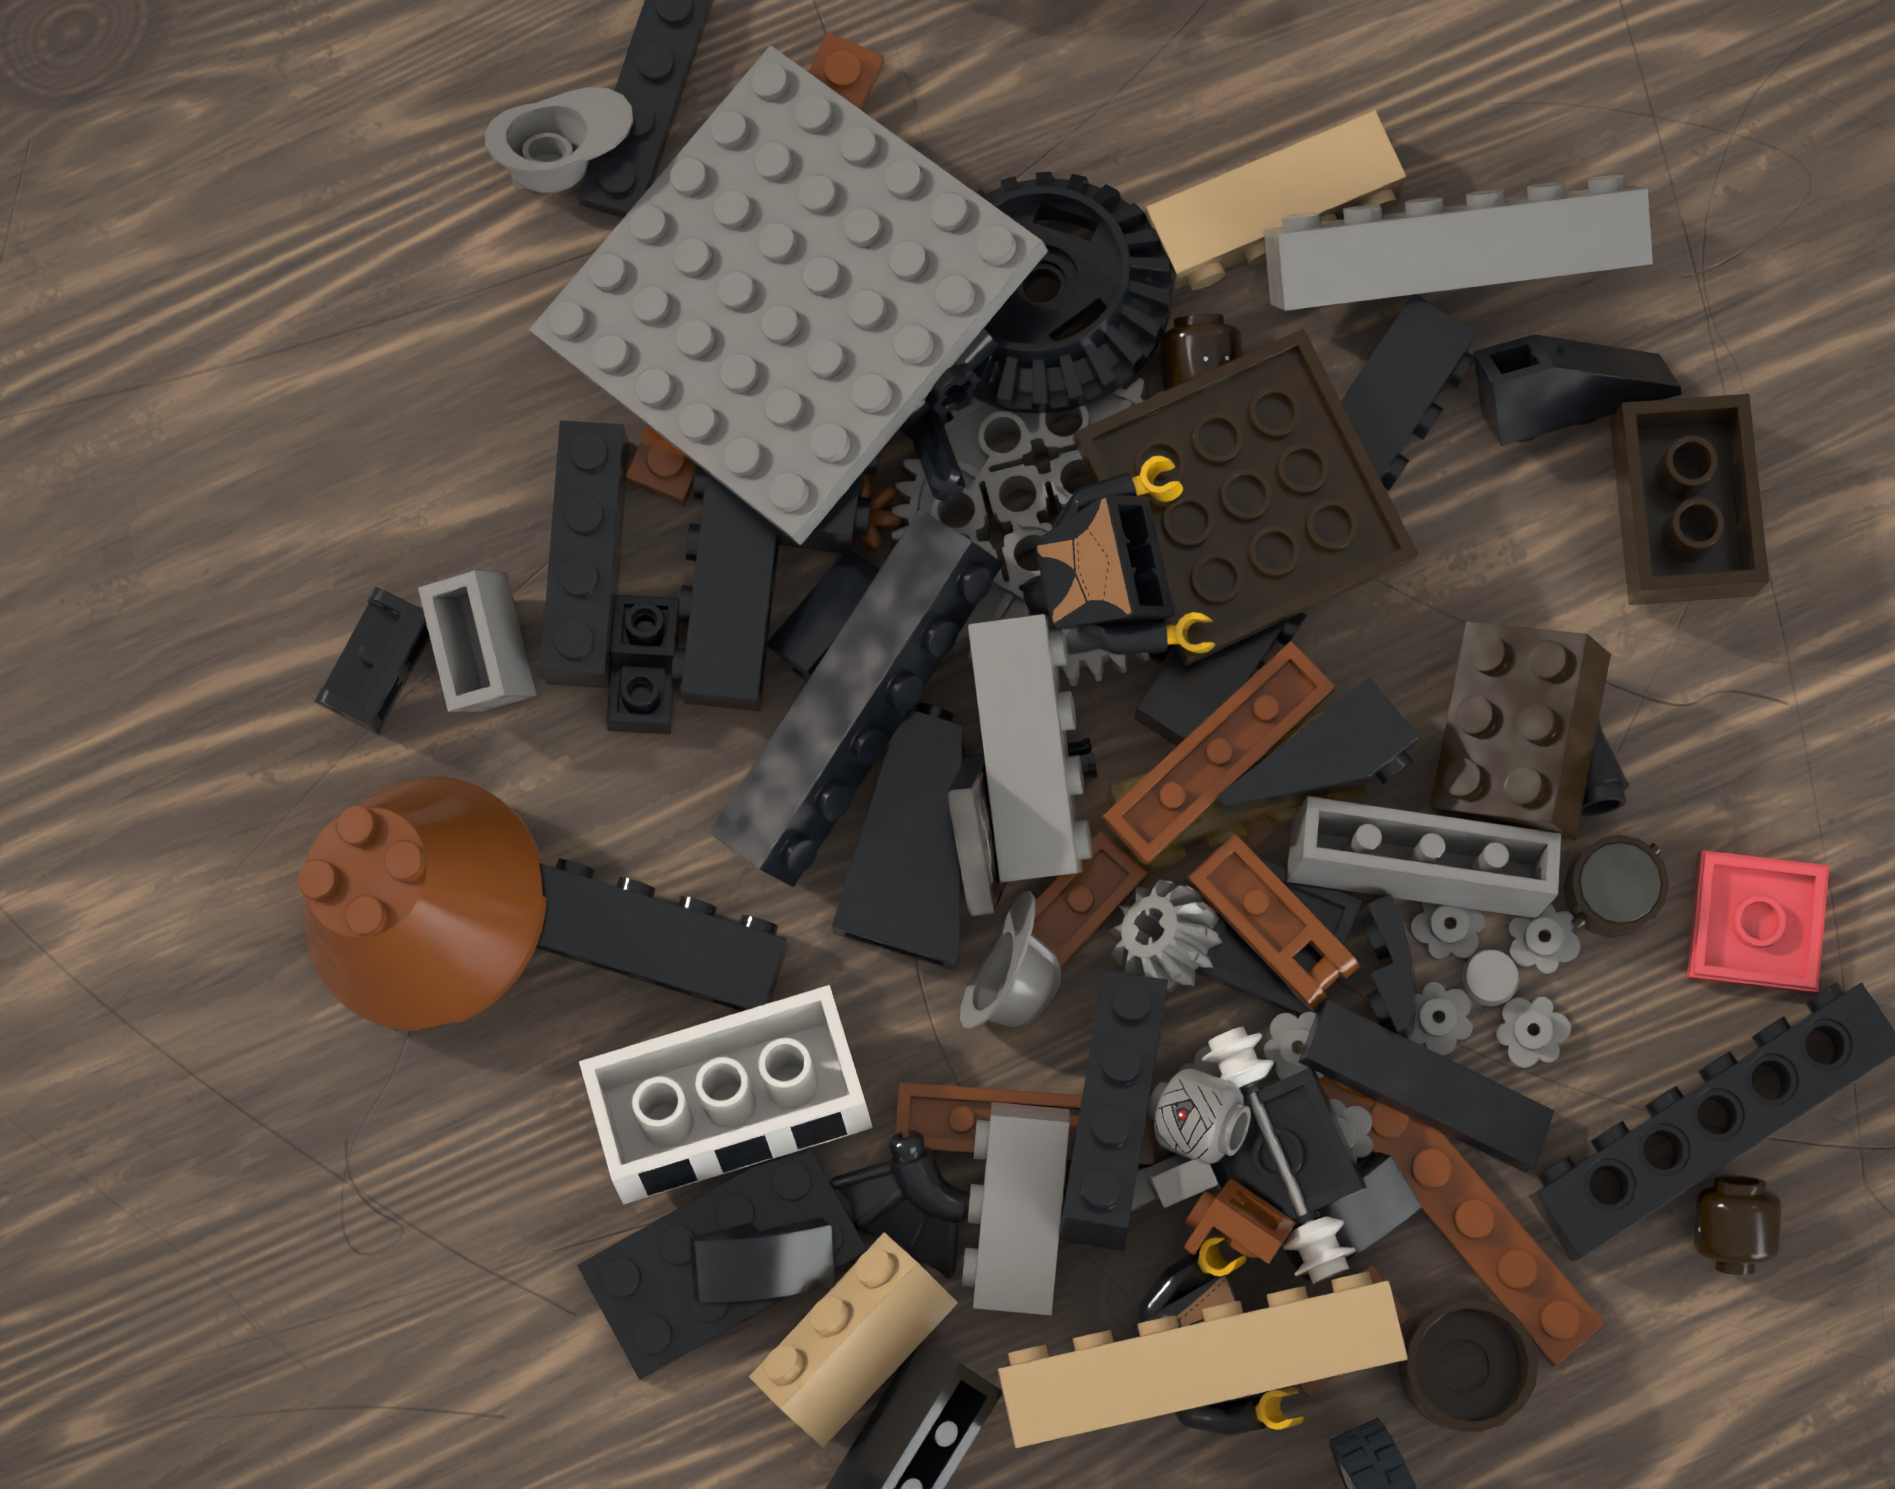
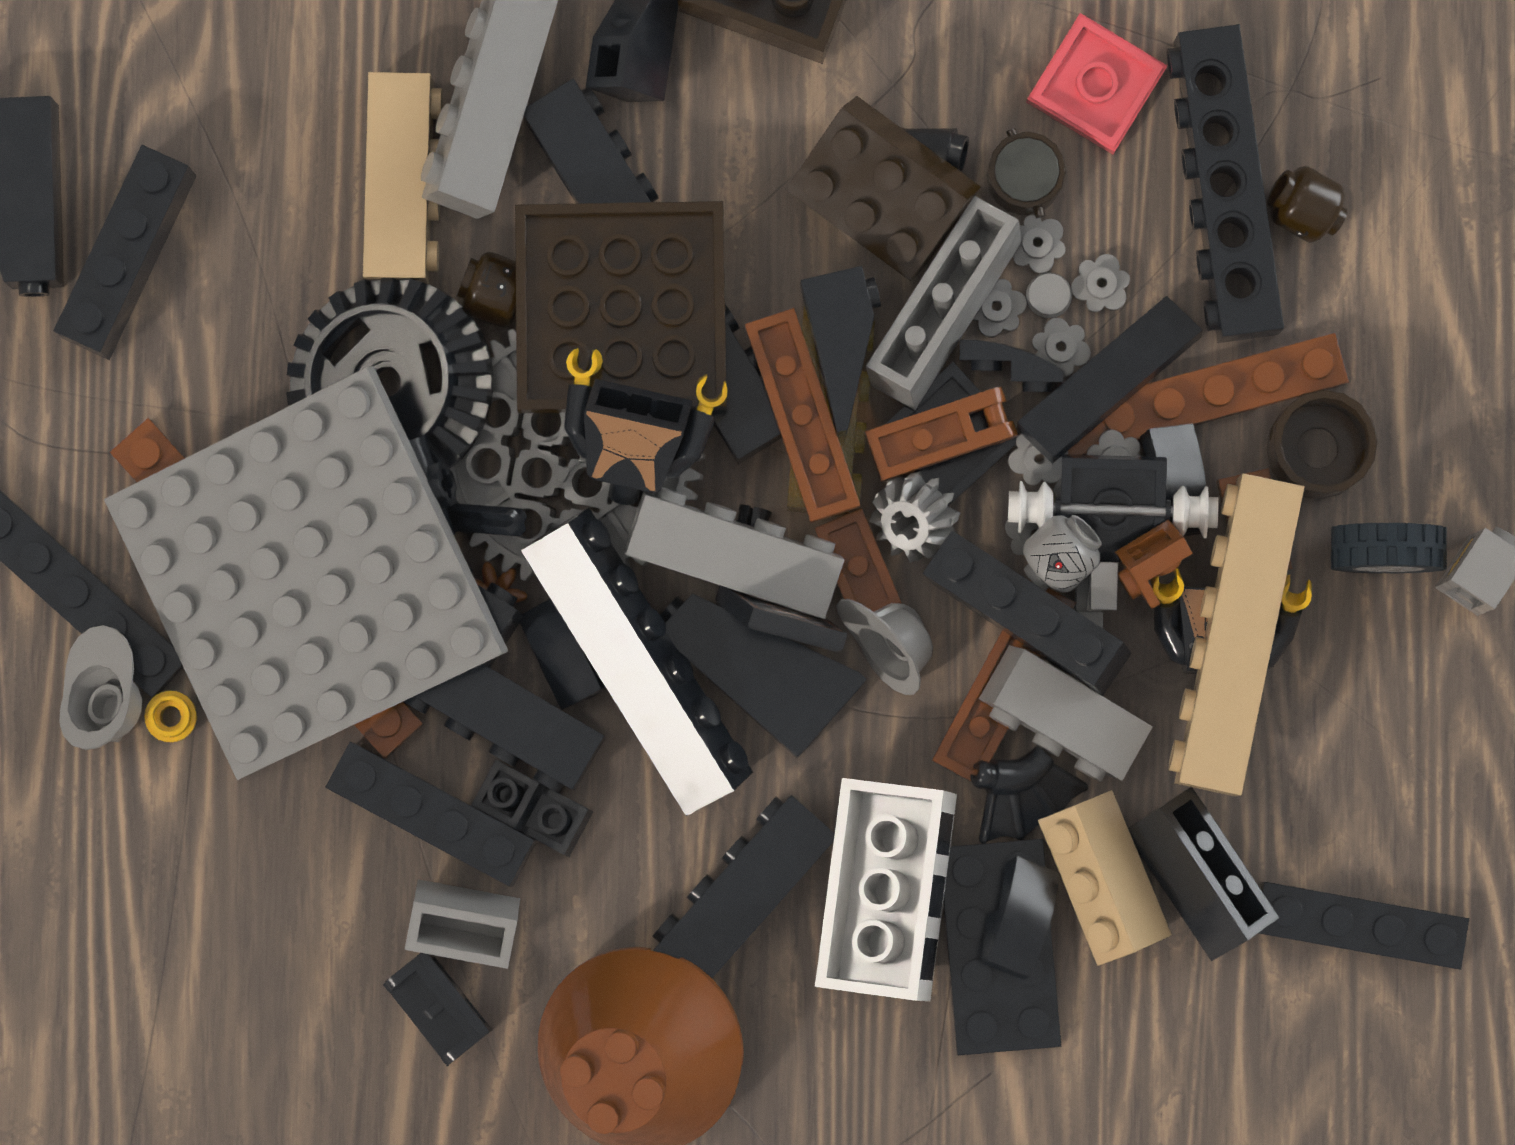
camera: 65 degrees left, 5 degrees up
(561, 211) = (156, 708): none -> yellow plate

